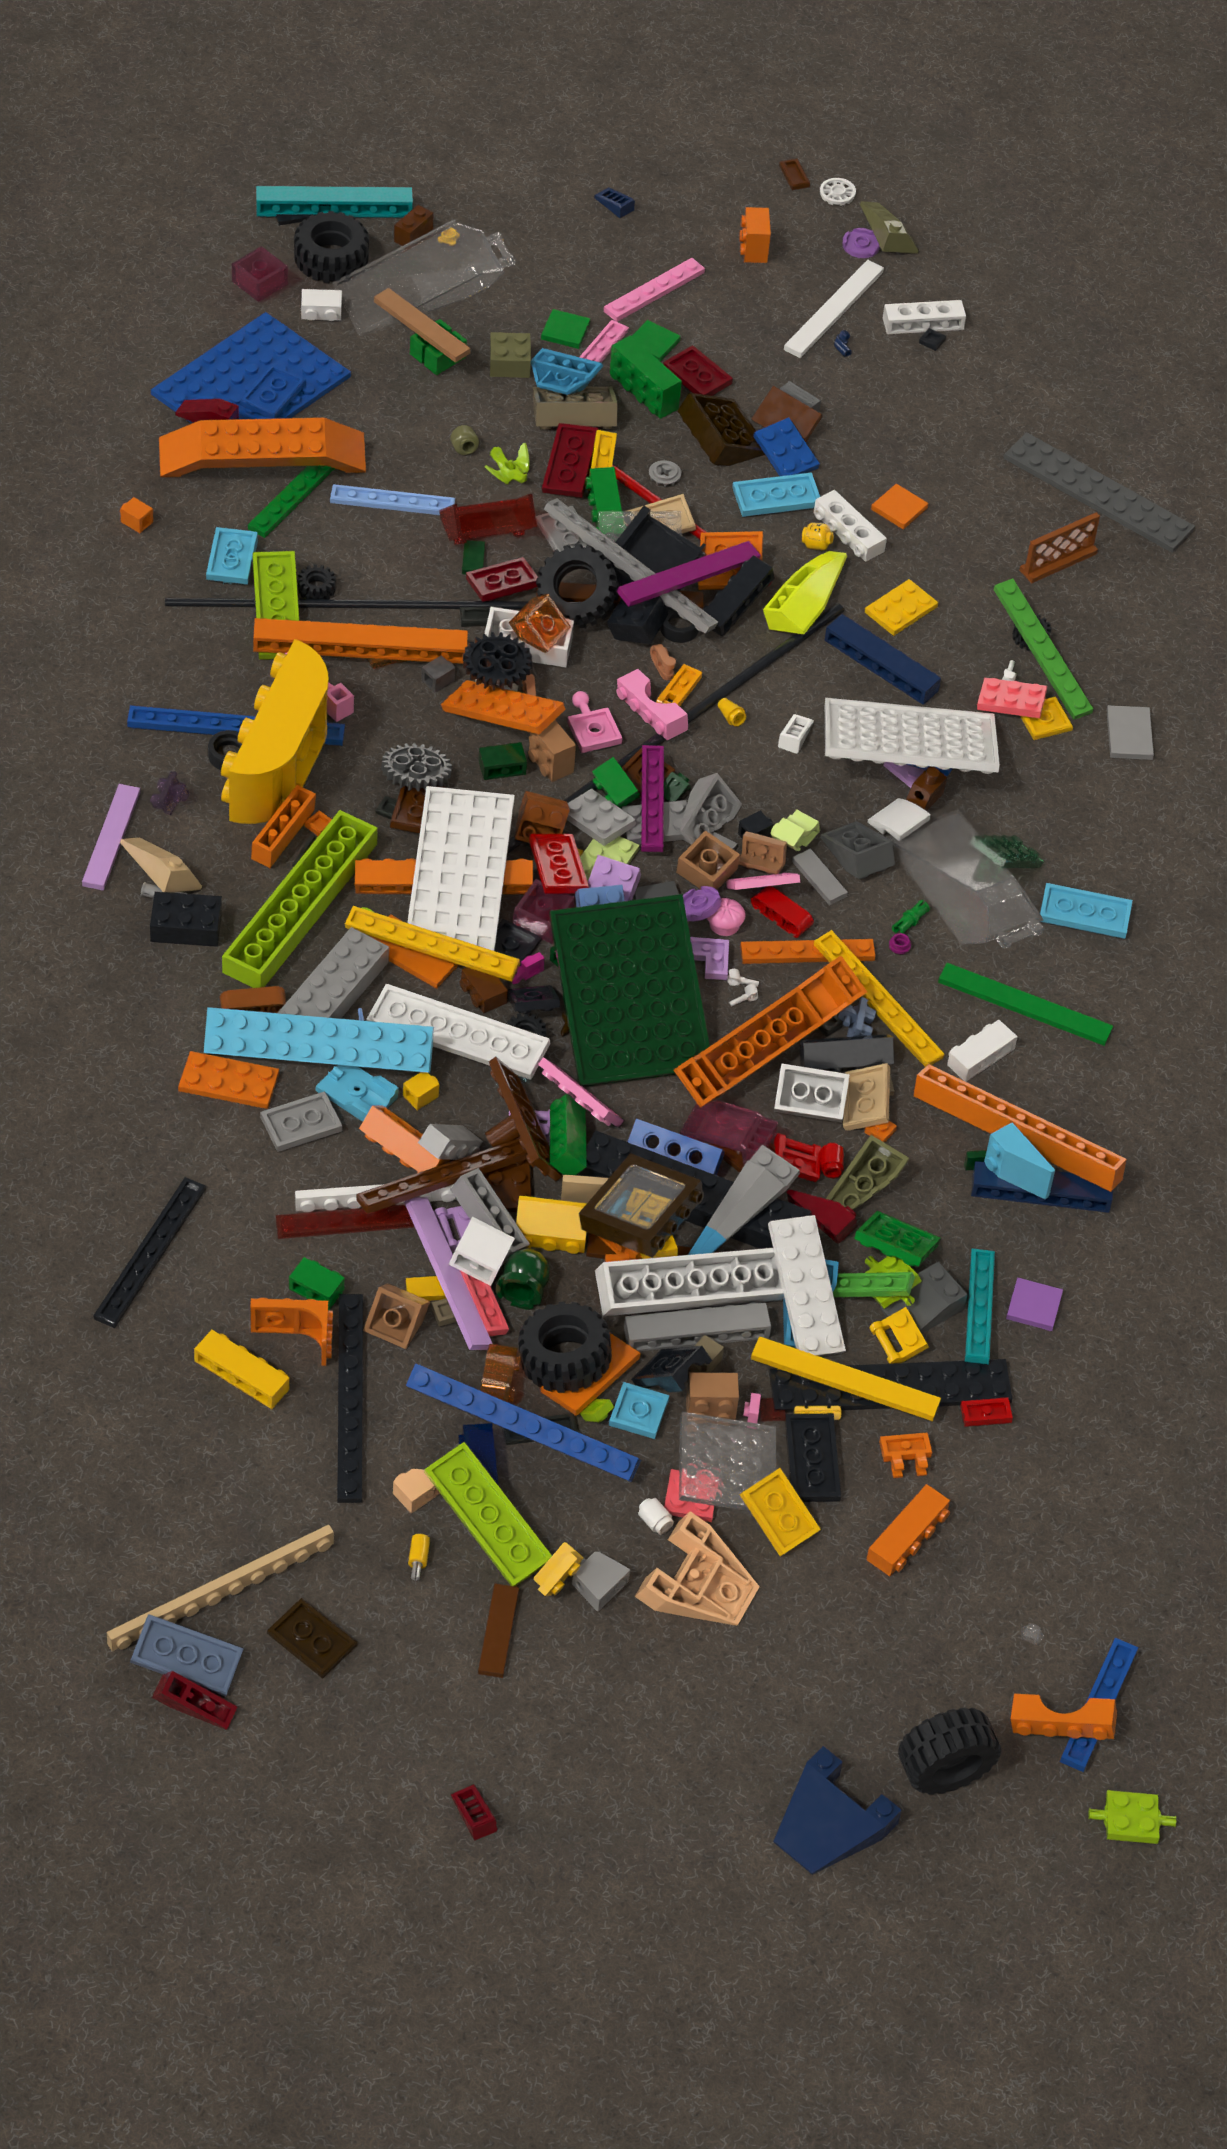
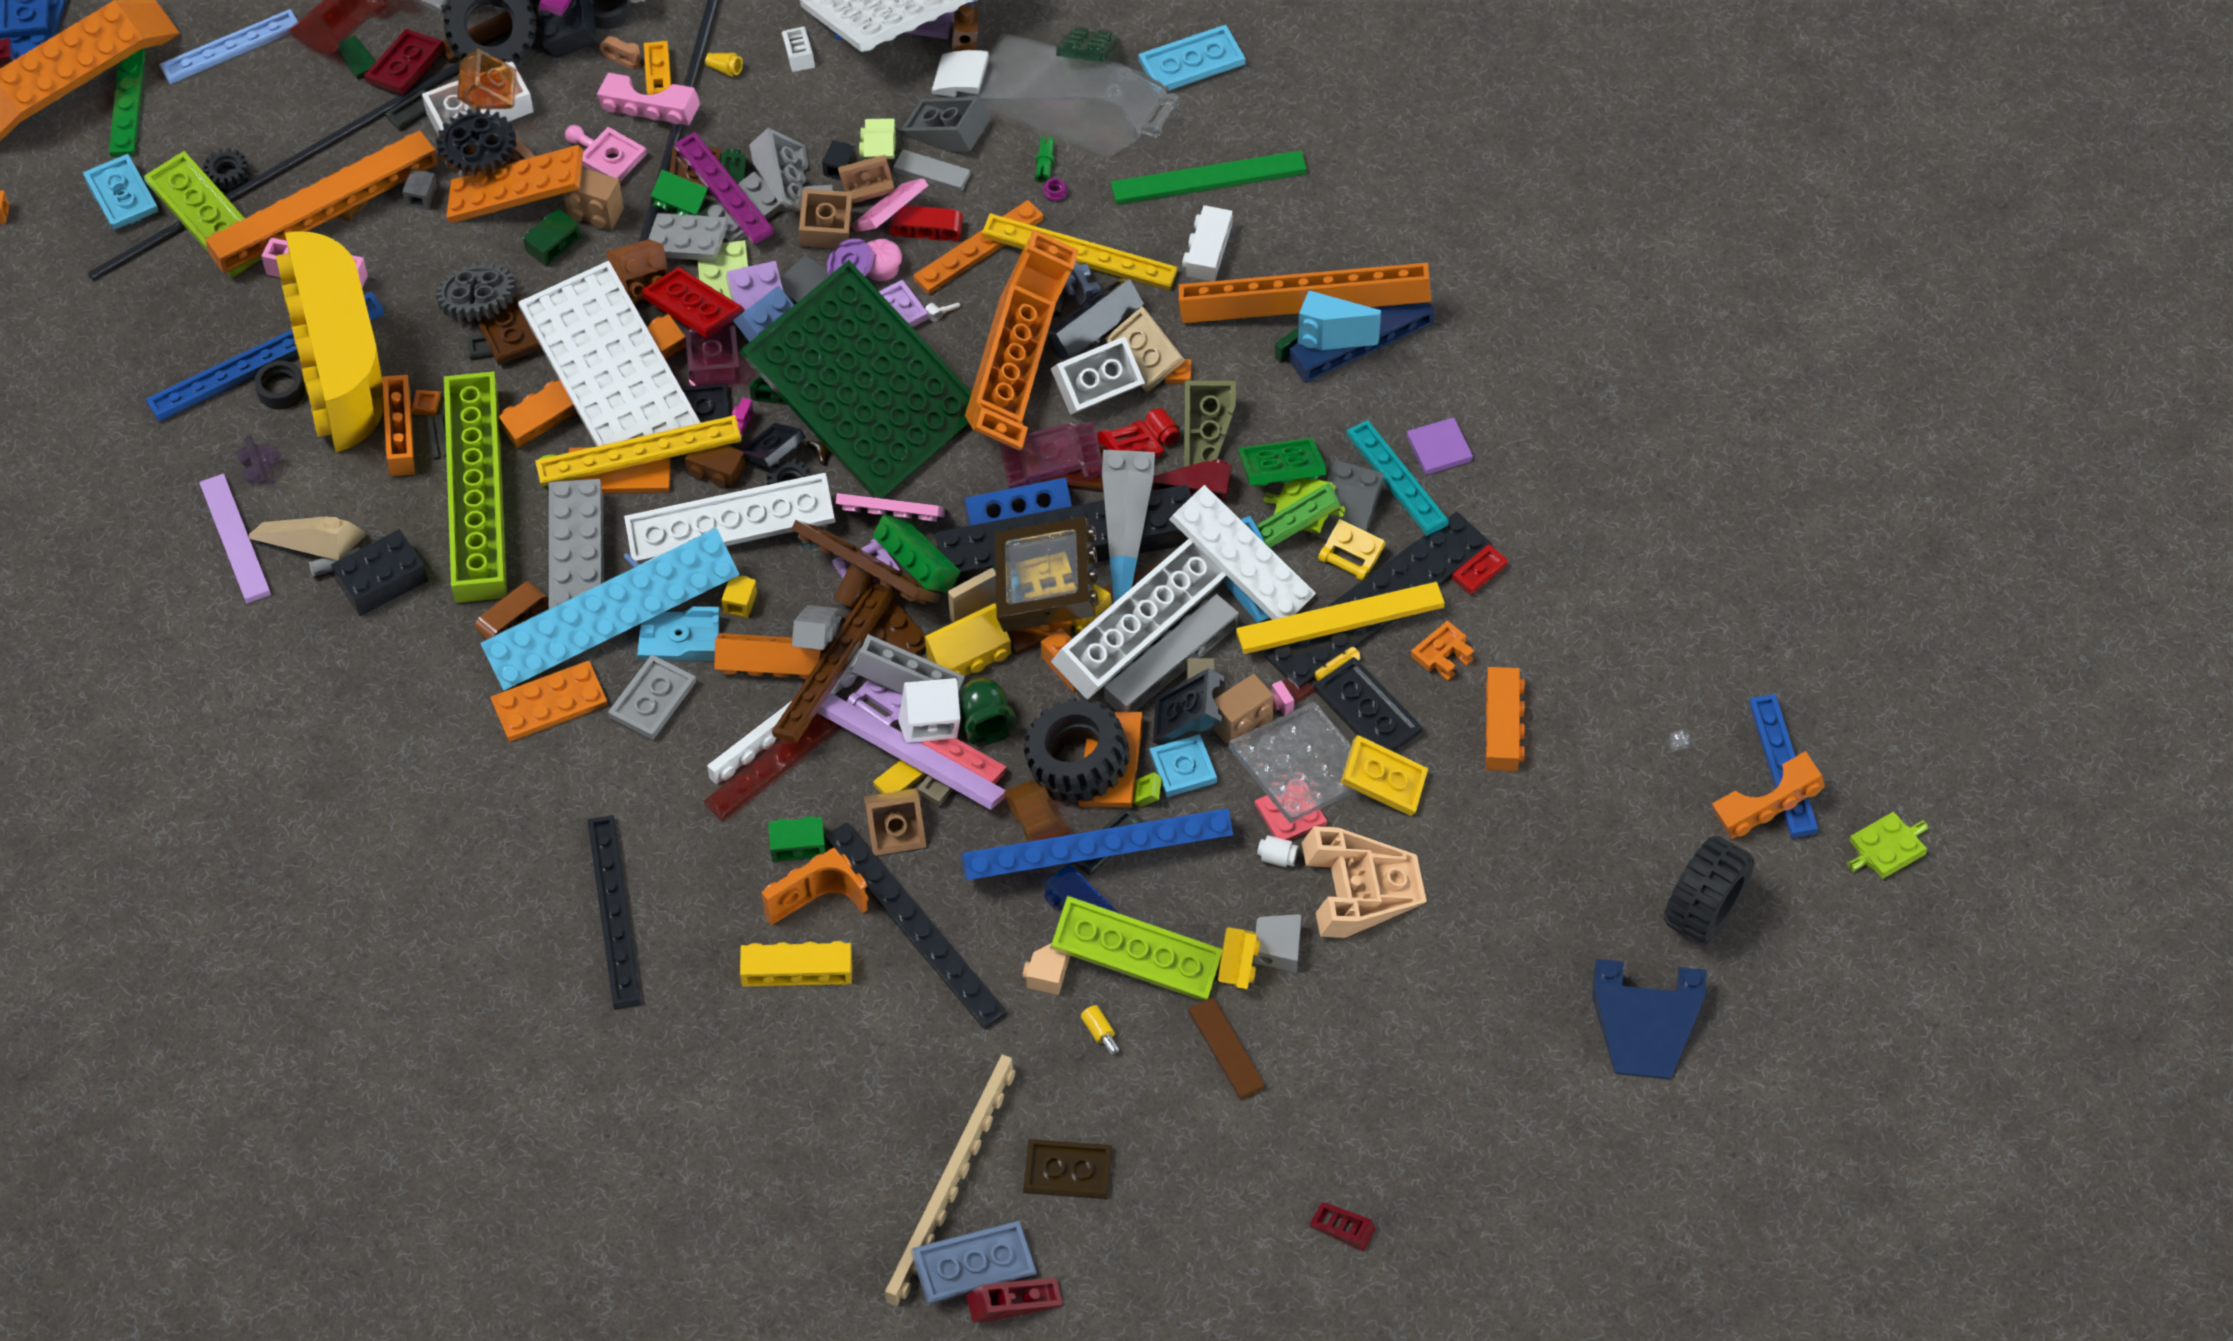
camera: 30 degrees left, 5 degrees up
(750, 995) = (961, 319): white hand -> none

